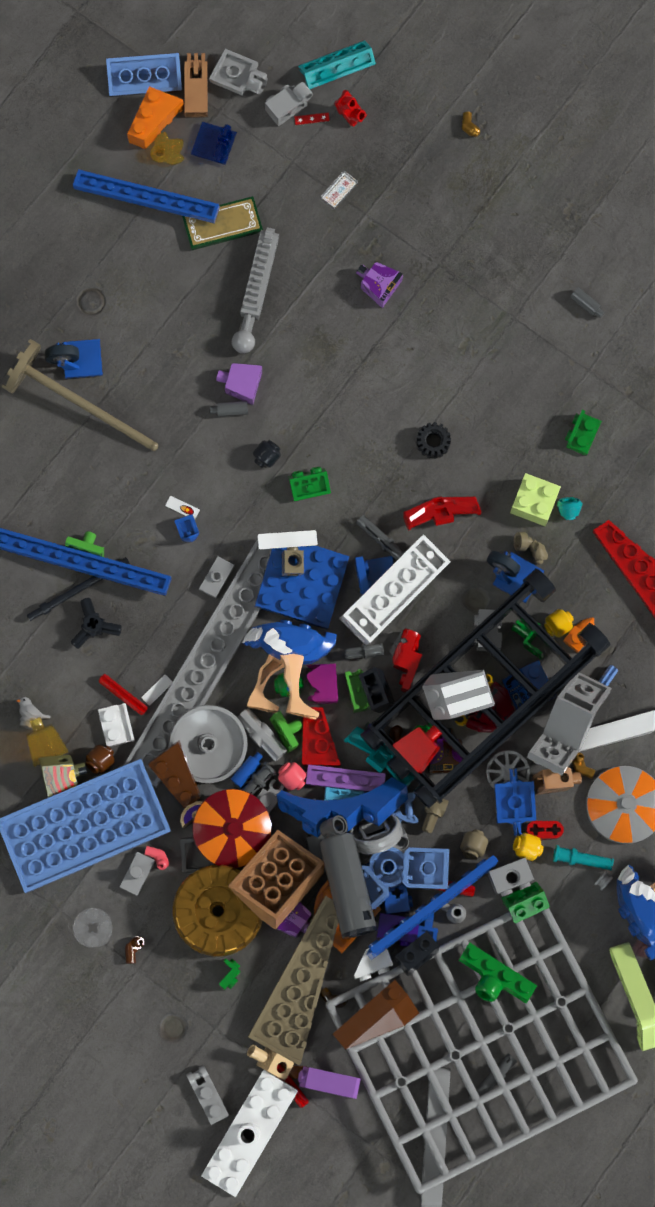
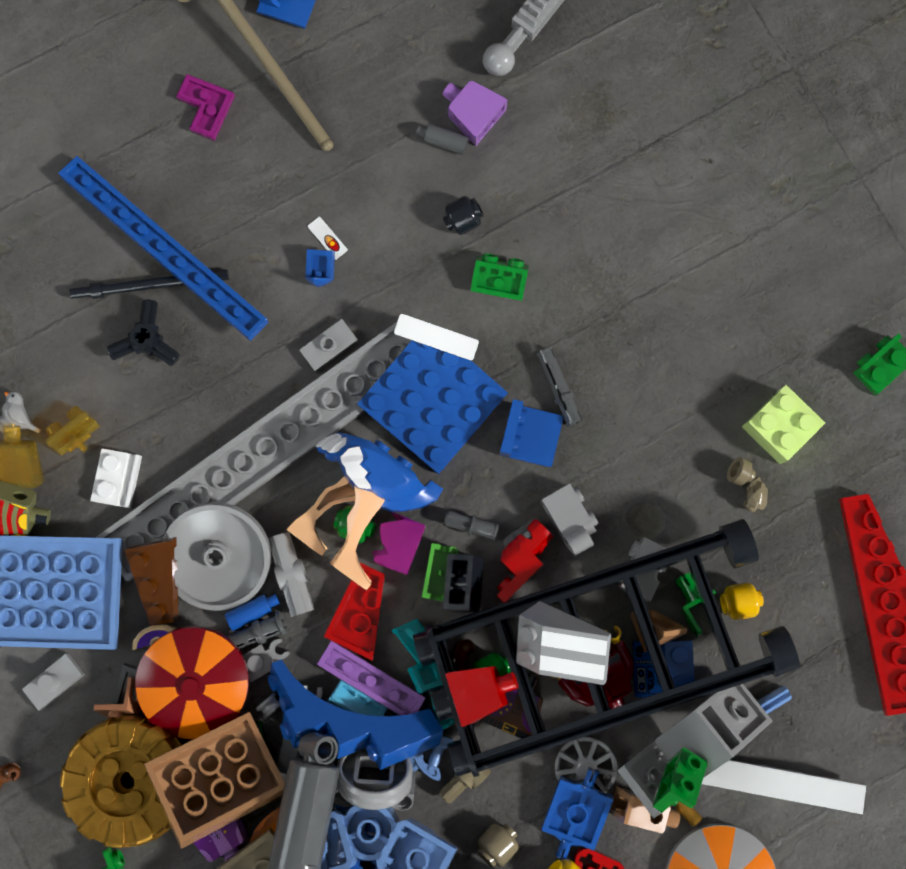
camera: 30 degrees right, 5 degrees up
(63, 451) = (211, 102): none -> magenta tile
(75, 708) = (73, 433): none -> clear yellow hips
(86, 544) = (182, 234): bright green tile -> none
(100, 759) = (73, 513): reddish brown head -> none
(123, 694) = (142, 443): red axle -> none
(157, 689) = (188, 456): white sticker -> none
(159, 856) = (91, 673): coral arm -> none
(184, 872) = (118, 710): none -> nougat bracket
(286, 731) = (324, 583): bright green tile -> none
(287, 824) = (269, 705): none -> light grey bush
(289, 570) = (417, 375): dark tan brick -> none
(292, 776) = (304, 646): coral head -> none
(379, 282) = (707, 57): torso -> none
(394, 590) = (546, 464): white plate -> none
(426, 618) = (571, 518): none -> light grey hinge
(433, 451) = (684, 305): black tyre -> none
(441, 510) = (653, 385): red plate -> none
(510, 571) = (709, 505): plate -> none
(518, 660) = (665, 628): none -> medium nougat slope
(568, 743) = (680, 780): none -> green bracket
(569, 507) = (823, 454): teal cone -> none
(572, 639) = (764, 621): orange plate -> none

